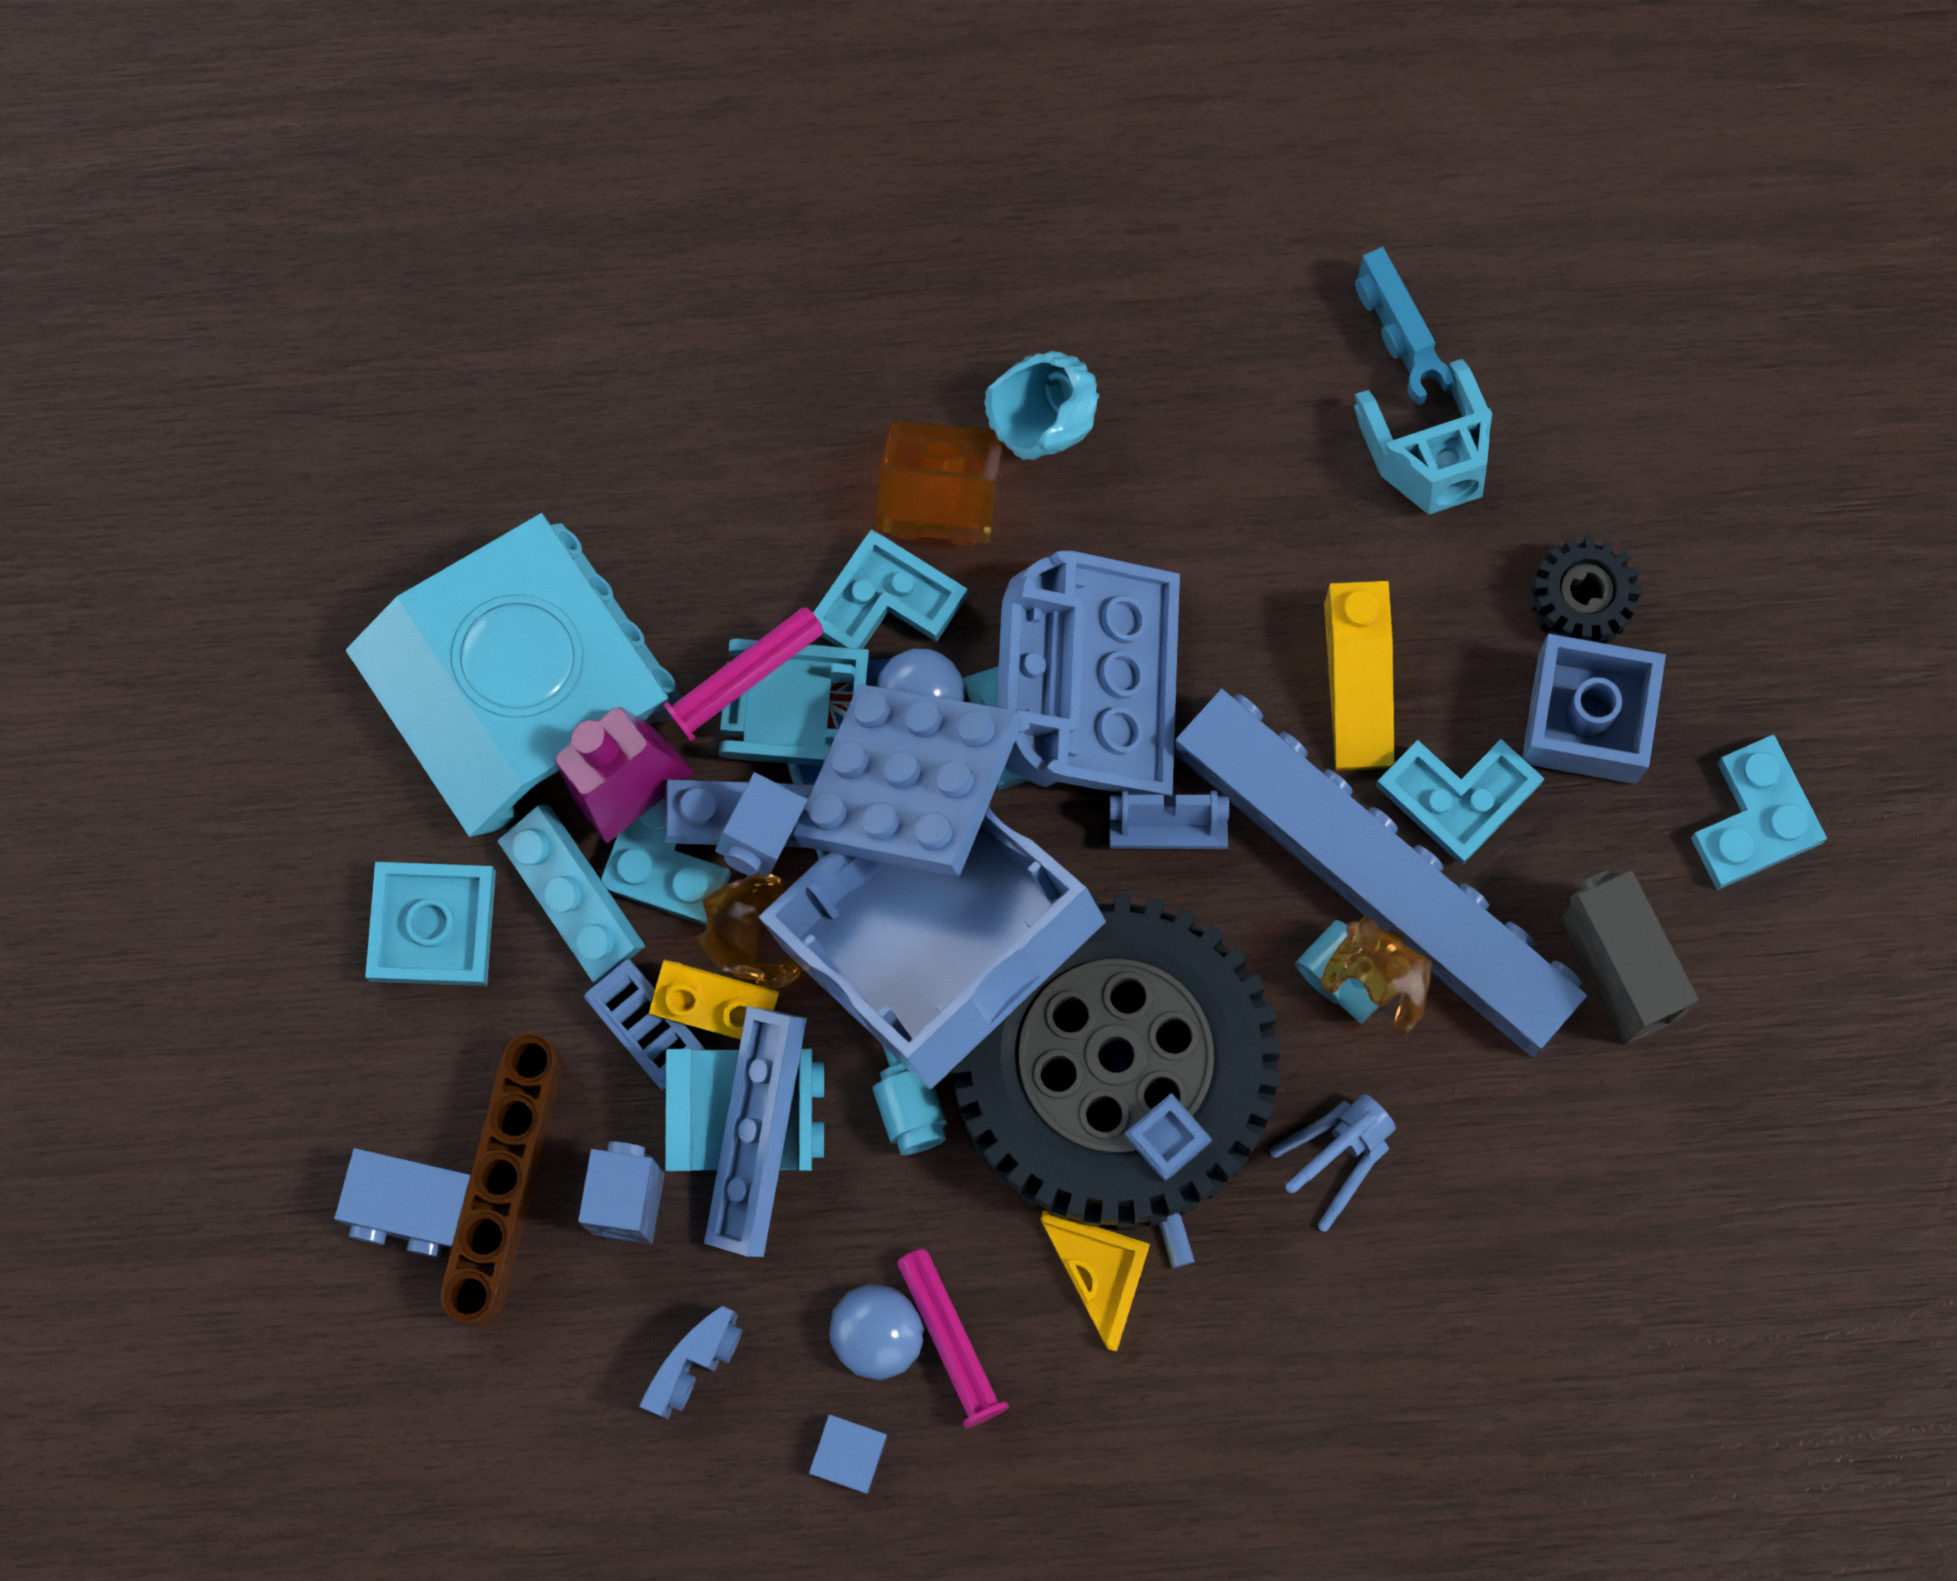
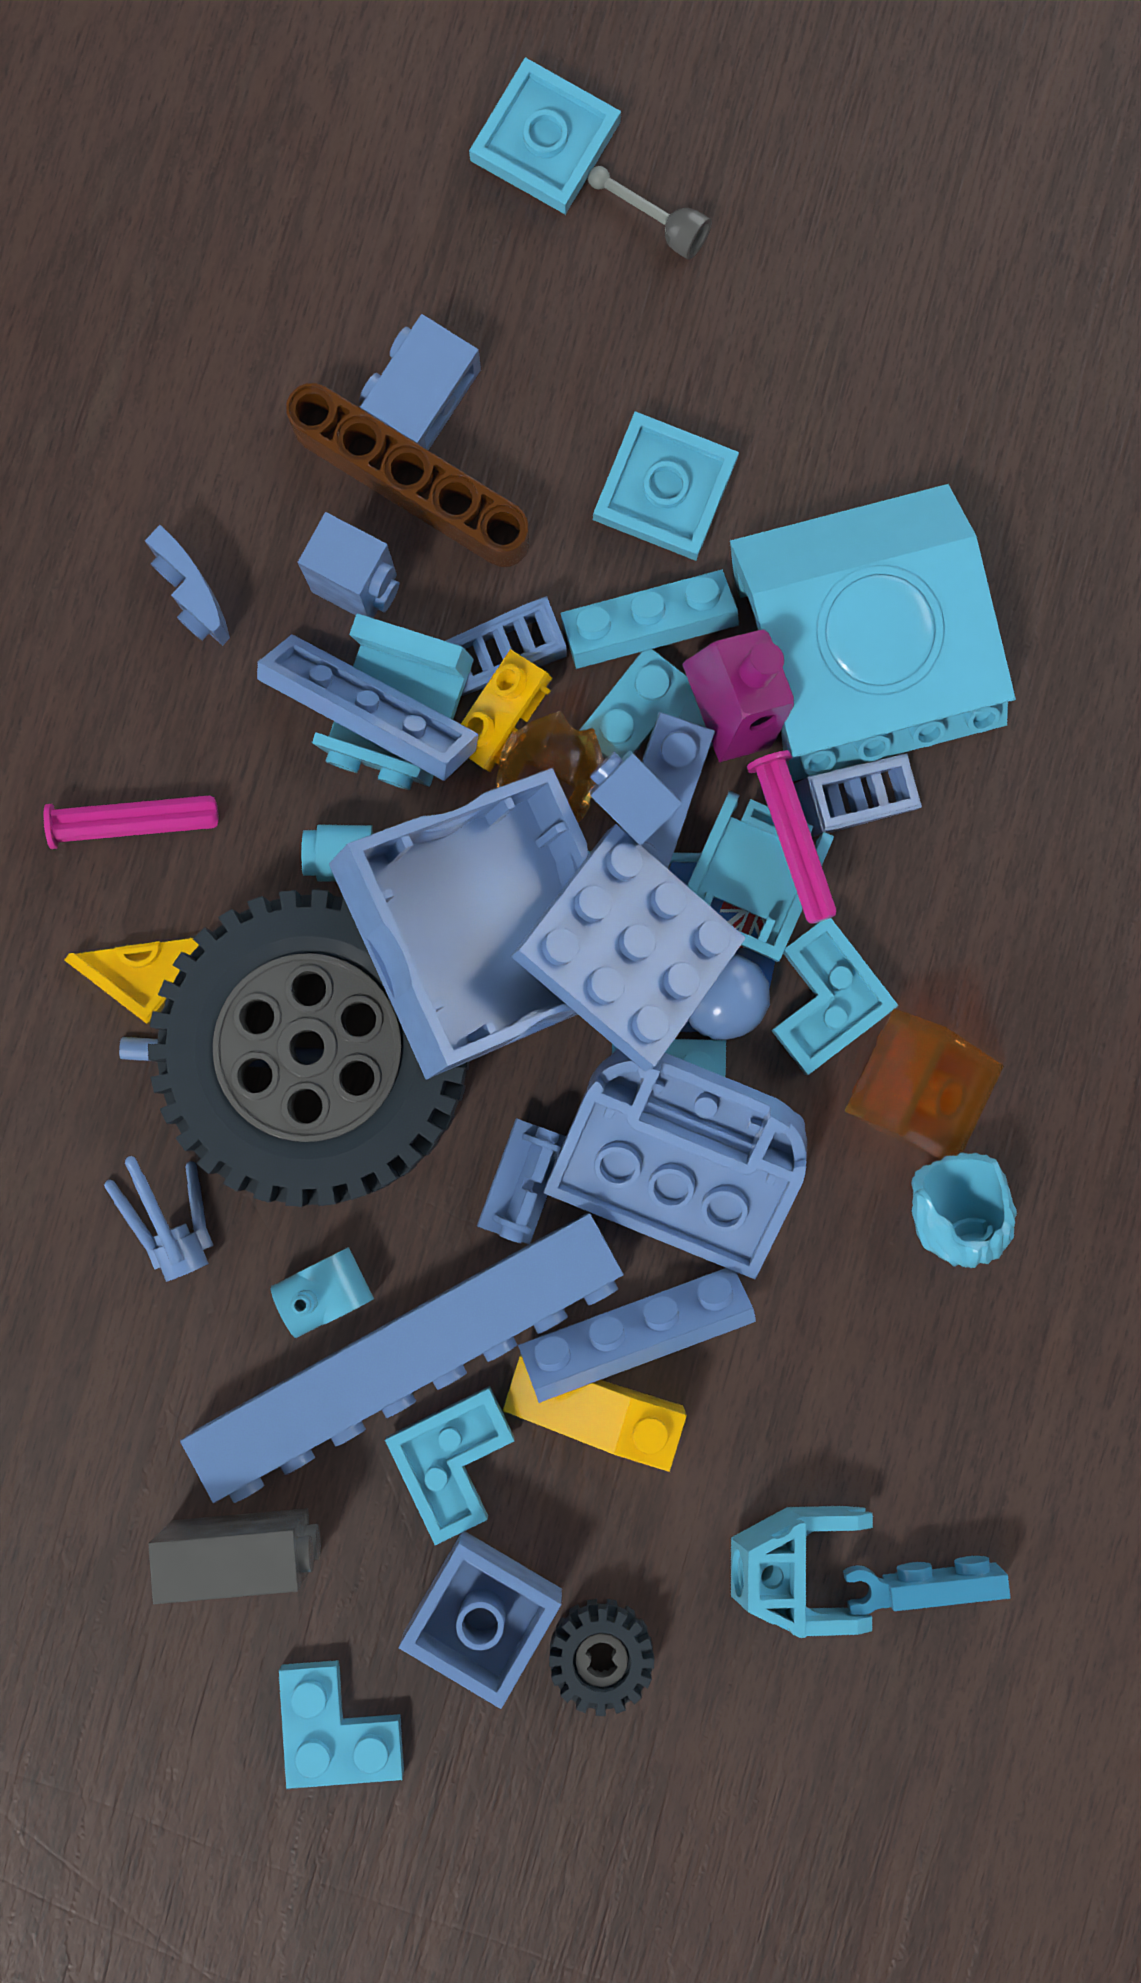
camera: 105 degrees right, 10 degrees up
(101, 1170) = (545, 135): none -> medium azure plate
(158, 1000) = (684, 228): none -> hinge
(696, 664) = (824, 805): none -> medium blue slope
(848, 1454) = (64, 697): medium blue tile -> none
(876, 1331) = (161, 757): medium blue hair -> none
(1168, 1137) = (210, 1065): medium blue tile -> none
(1273, 662) = (636, 1333): none -> medium blue plate
(1384, 969) = (293, 1324): clear orange helmet -> none

